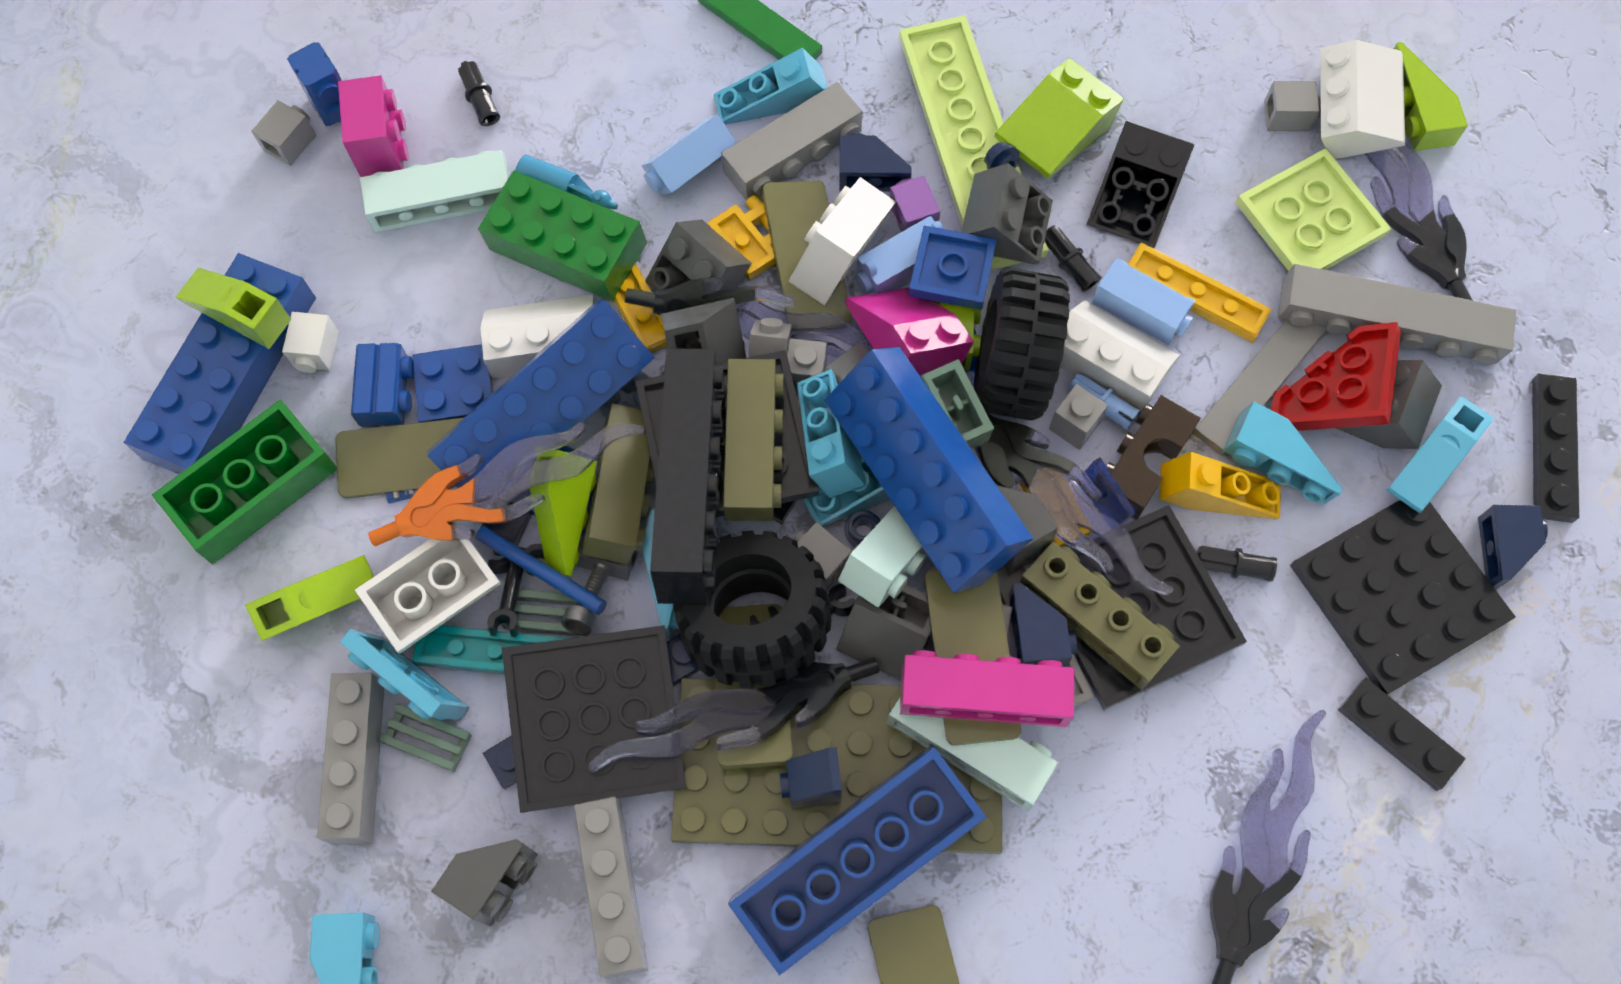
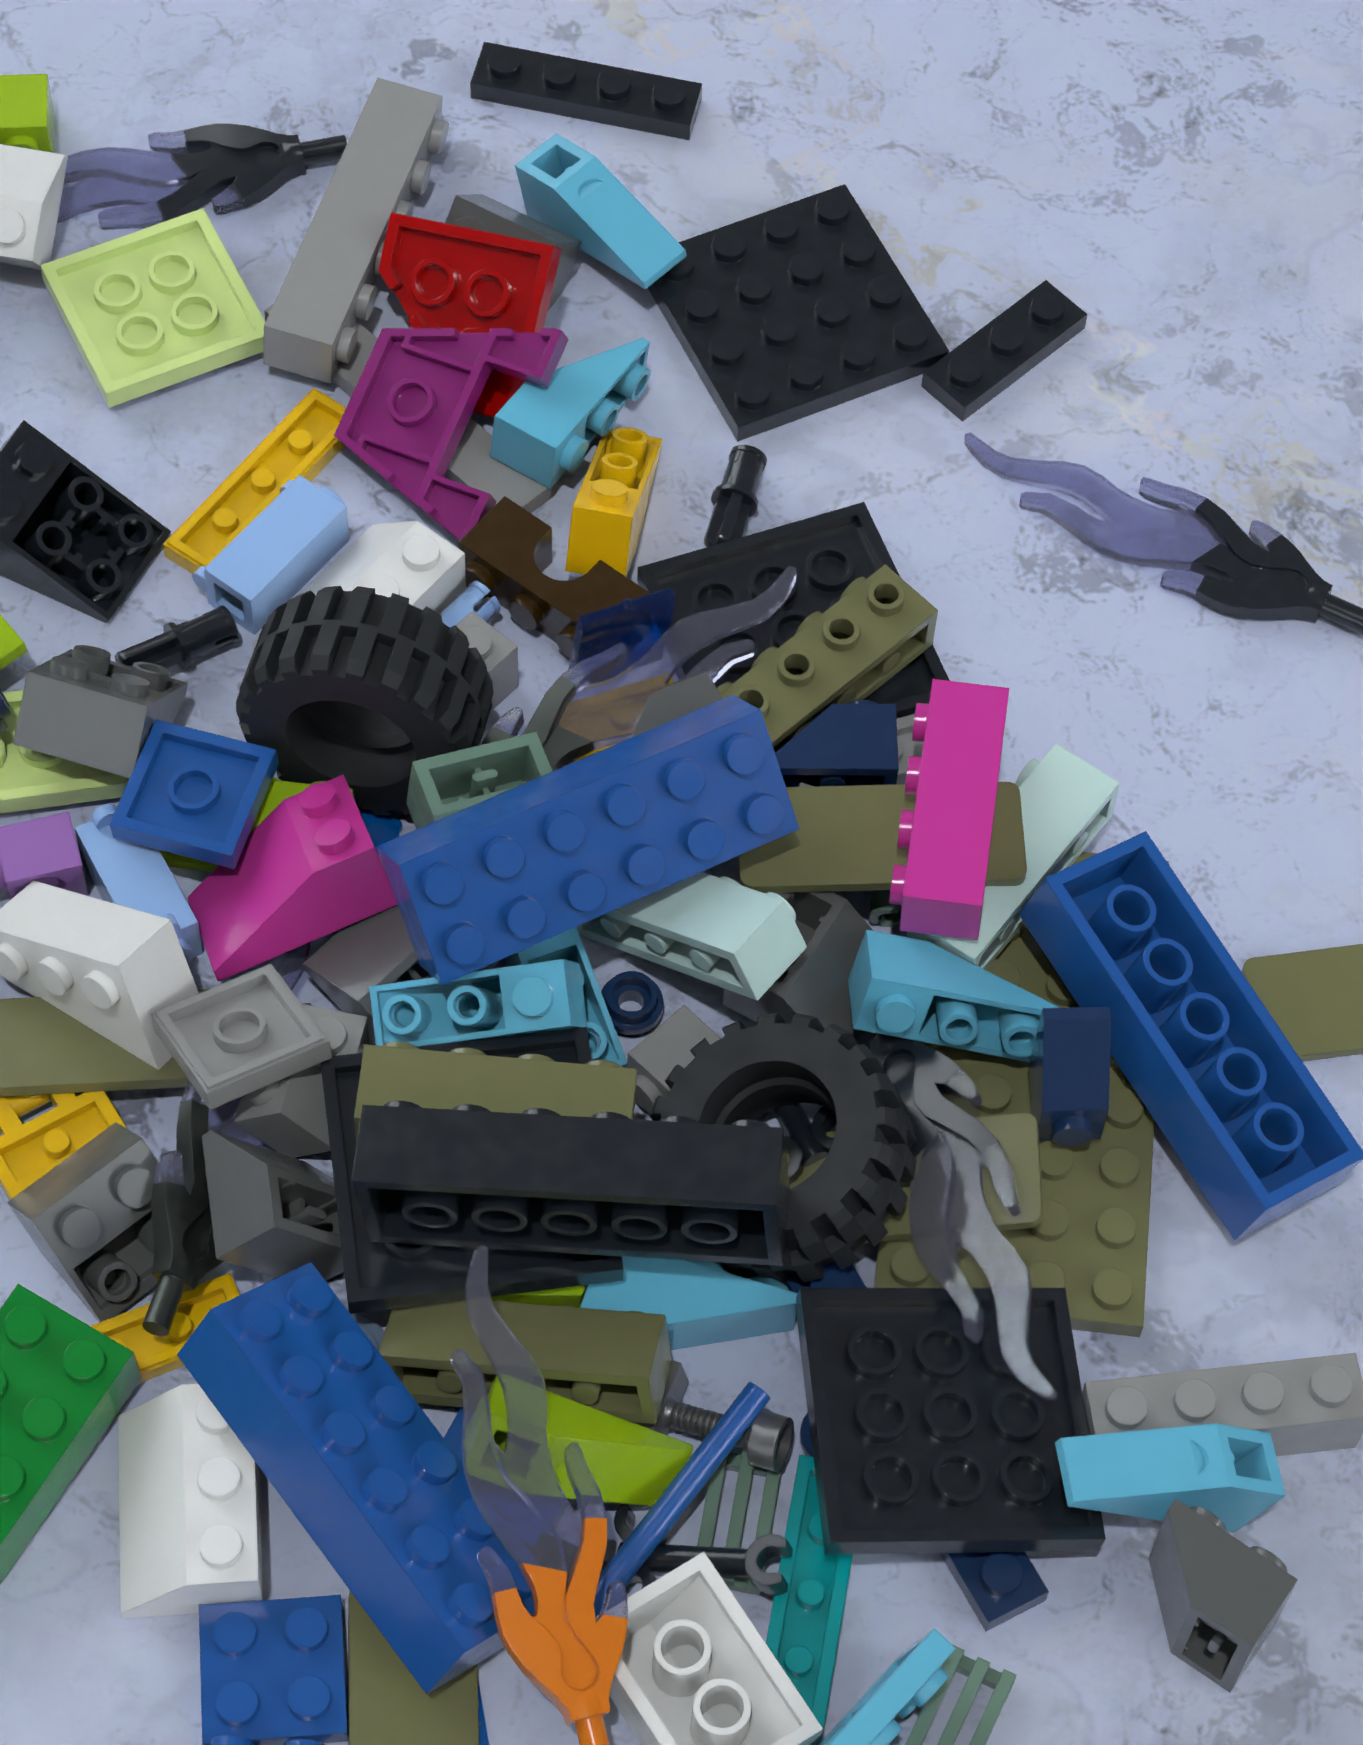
camera: 90 degrees left, 10 degrees down
(558, 848) = (1145, 1470): none -> medium azure slope
(795, 308) = (241, 1036): none -> light grey tile
(867, 692) = (939, 998): none -> medium azure slope
(1261, 362) = (419, 401): none -> magenta wing
(1510, 539) = (736, 166): dark blue slope -> none

